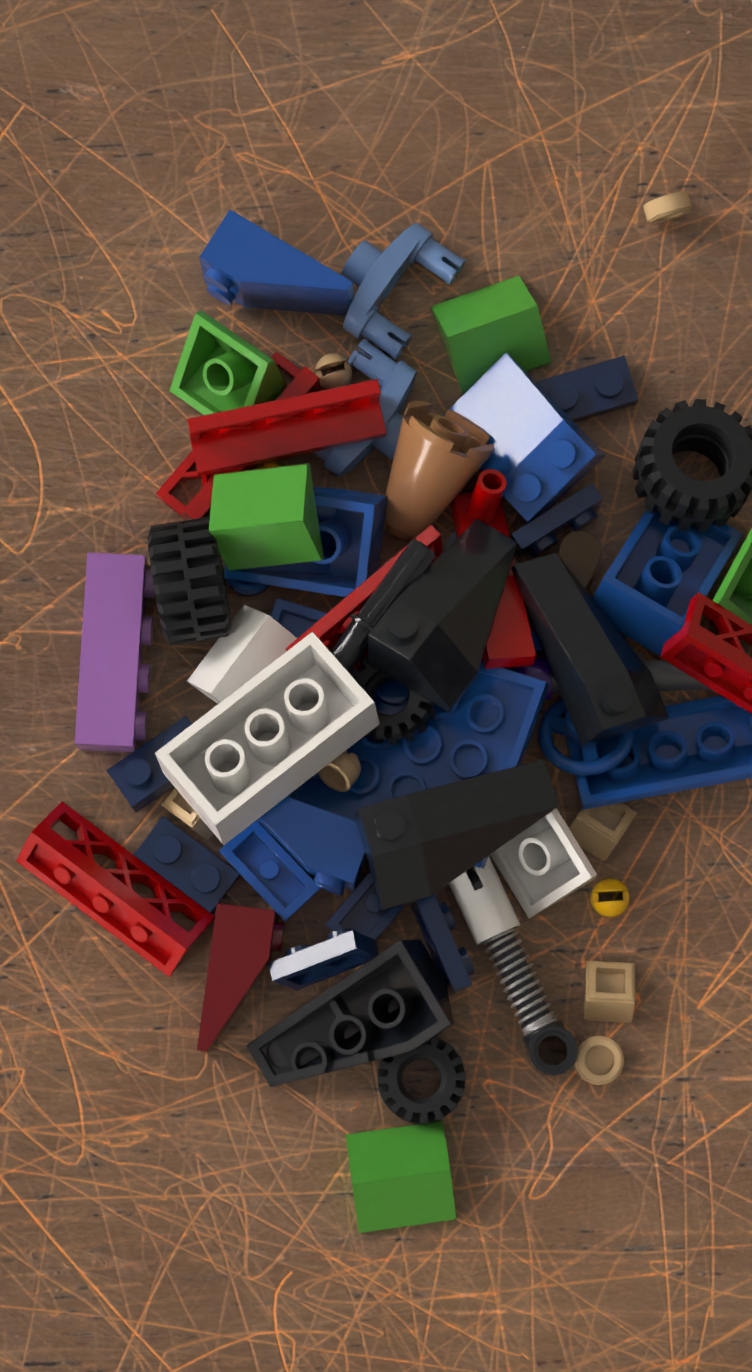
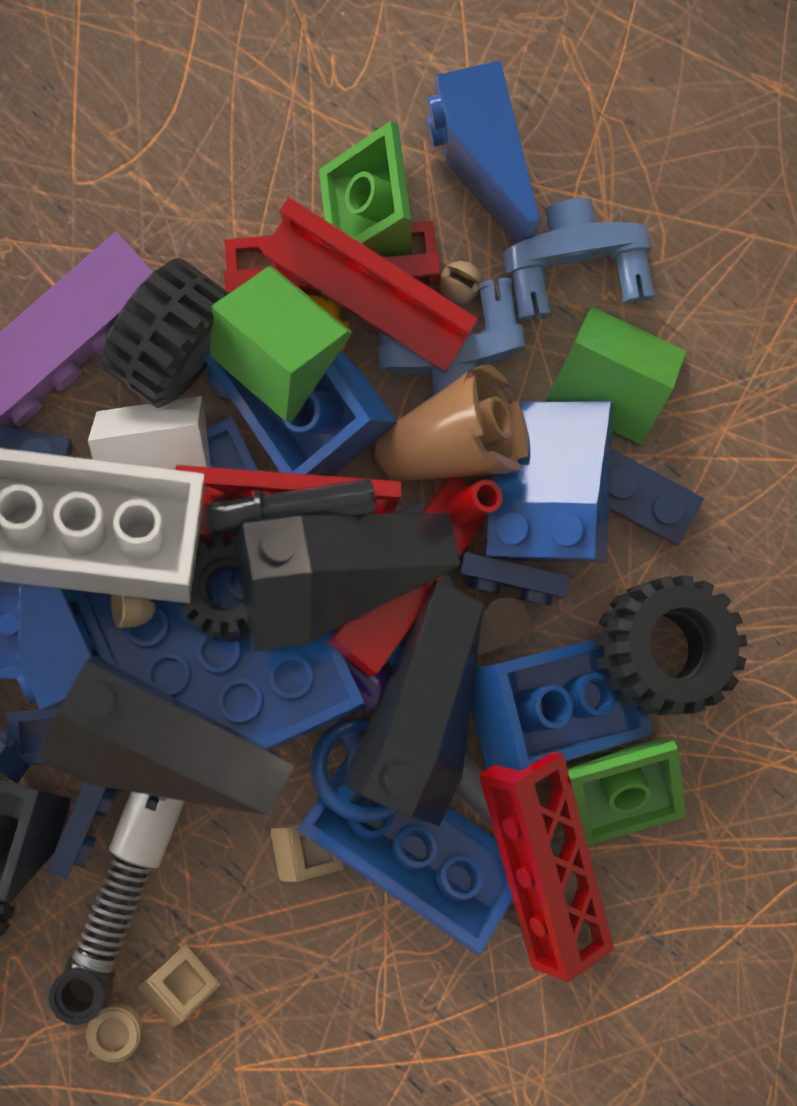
camera: 45 degrees right, 5 degrees up
(543, 864) = (225, 846): white slope -> none
(609, 908) = (261, 907): yellow hinge -> none

